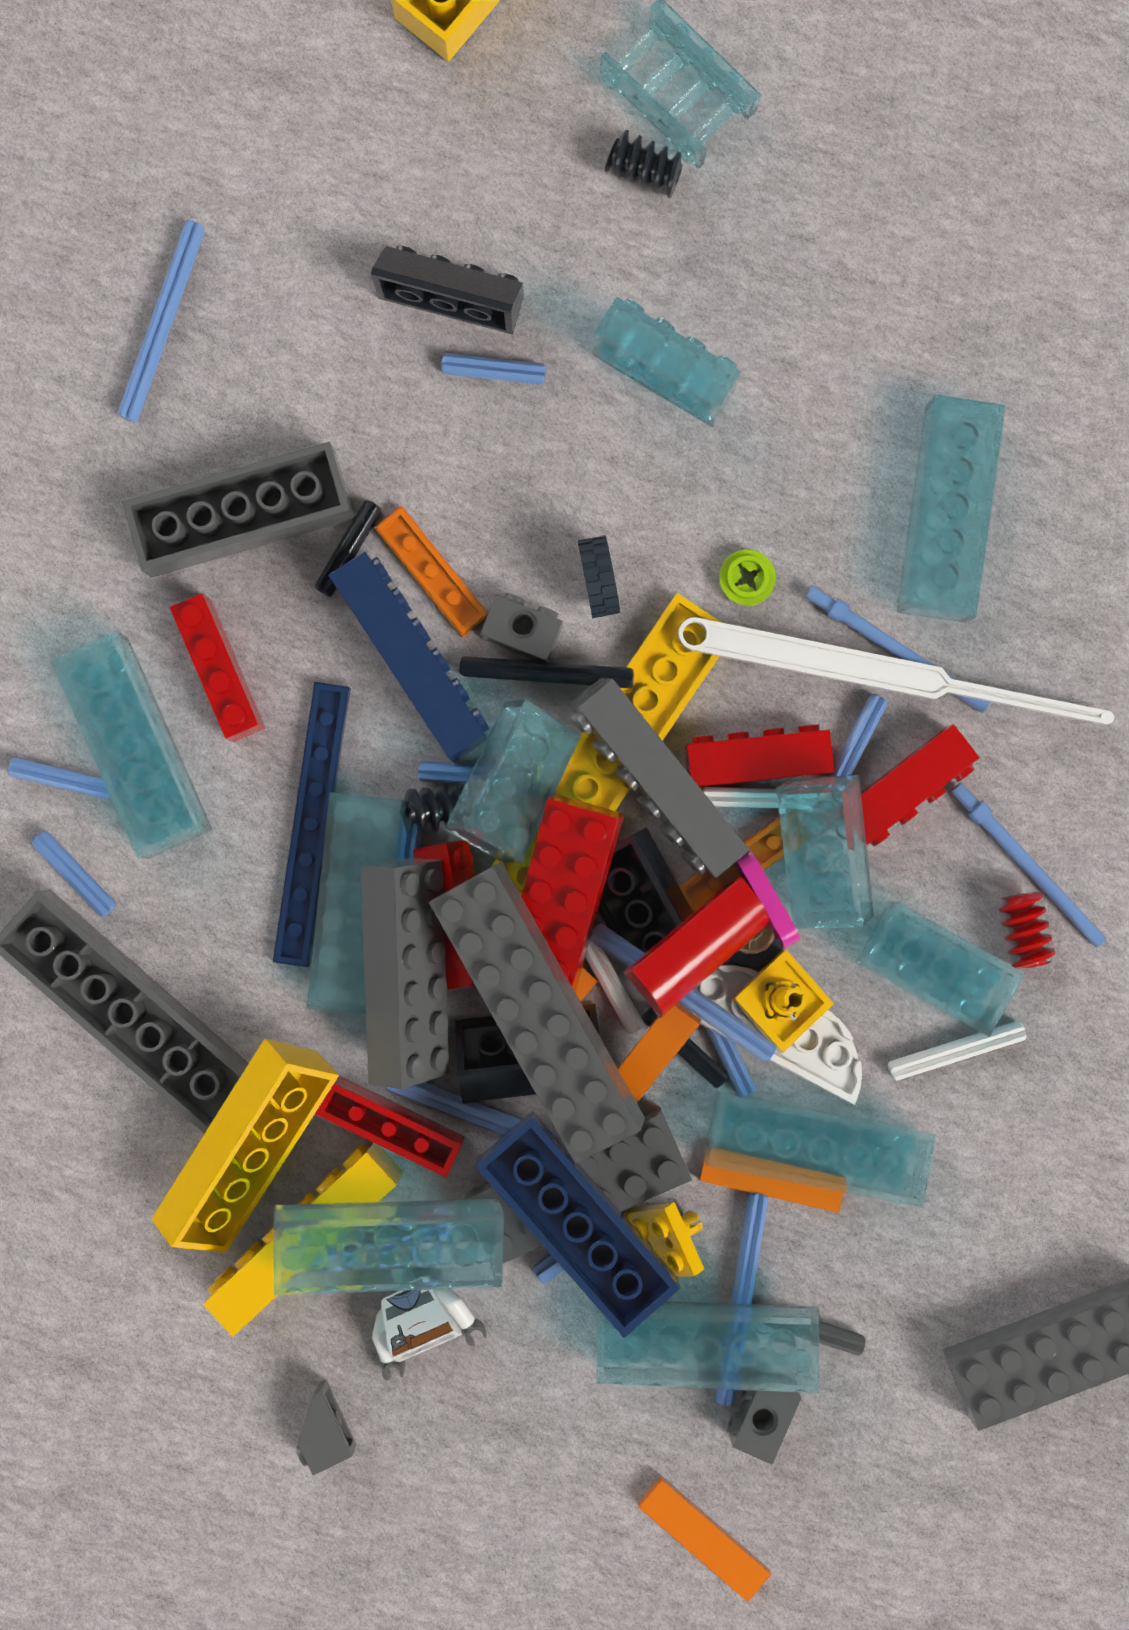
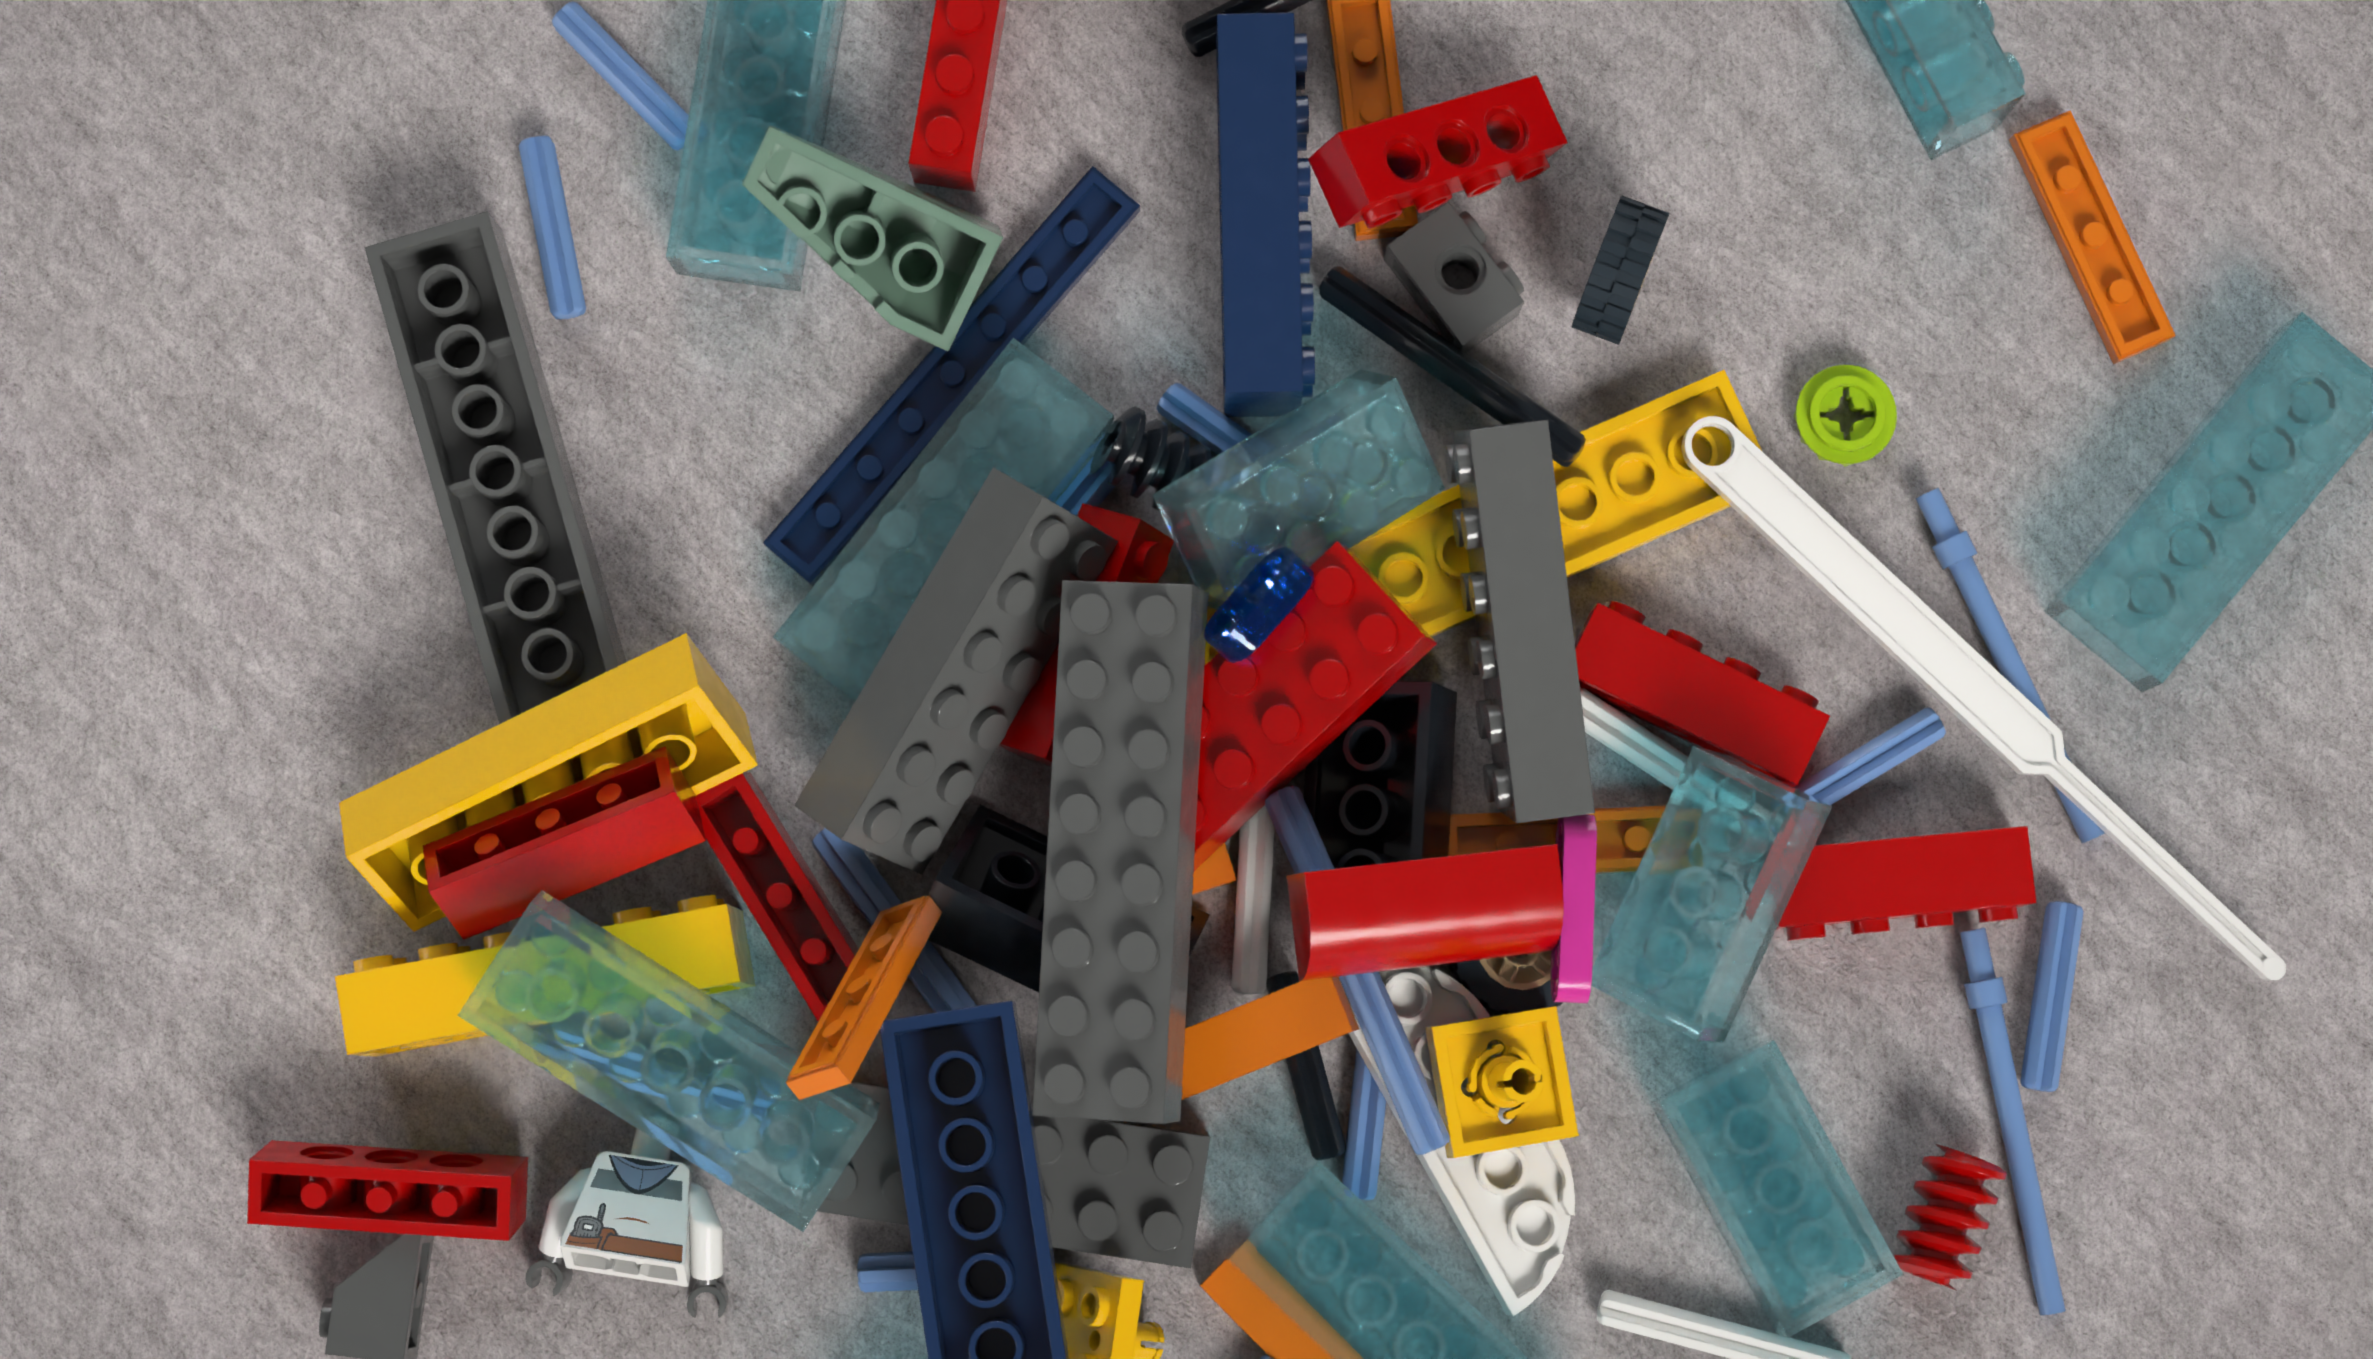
camera: 35 degrees right, 5 degrees down
(238, 781) = (889, 240): none -> sand green wedge
(270, 1173) = (563, 842): none -> red brick
(292, 1380) = (387, 1190): none -> red brick
(460, 1158) = (863, 998): none -> orange tile
(501, 534) = (1437, 152): none -> red brick
(529, 853) = (1258, 604): none -> clear blue beam
(811, 417) = (2092, 237): none -> orange tile
(1011, 794) = (2051, 996): none -> medium blue axle

